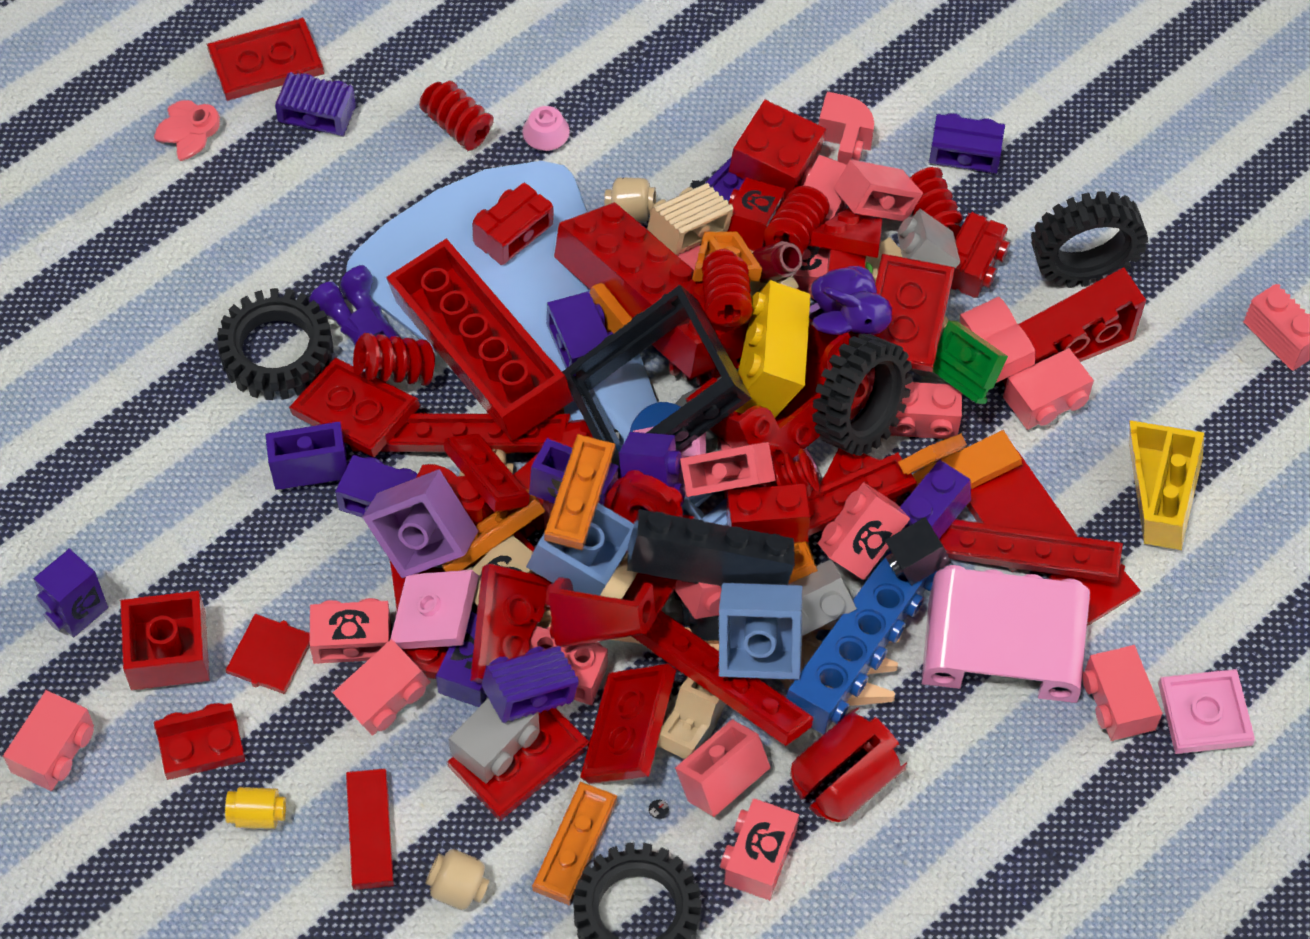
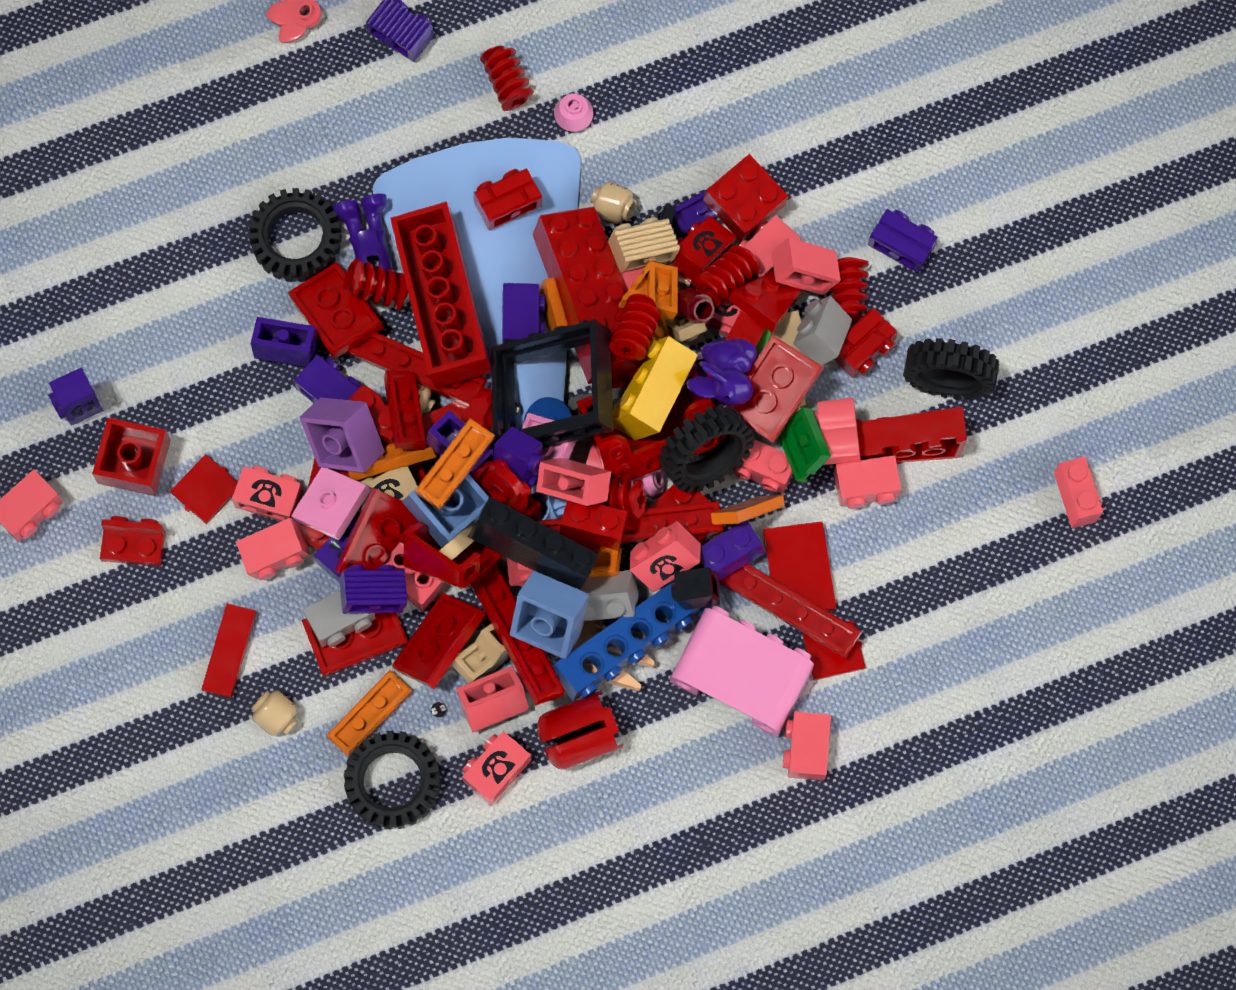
camera: 20 degrees right, 15 degrees up
(255, 808) = (153, 608): yellow brick -> none
(847, 124) = (815, 190): coral brick -> none
(981, 460) = (784, 524): orange tile -> none
(1165, 478) = (921, 590): yellow wedge -> none
(1206, 711) = (867, 780): bright pink plate -> none

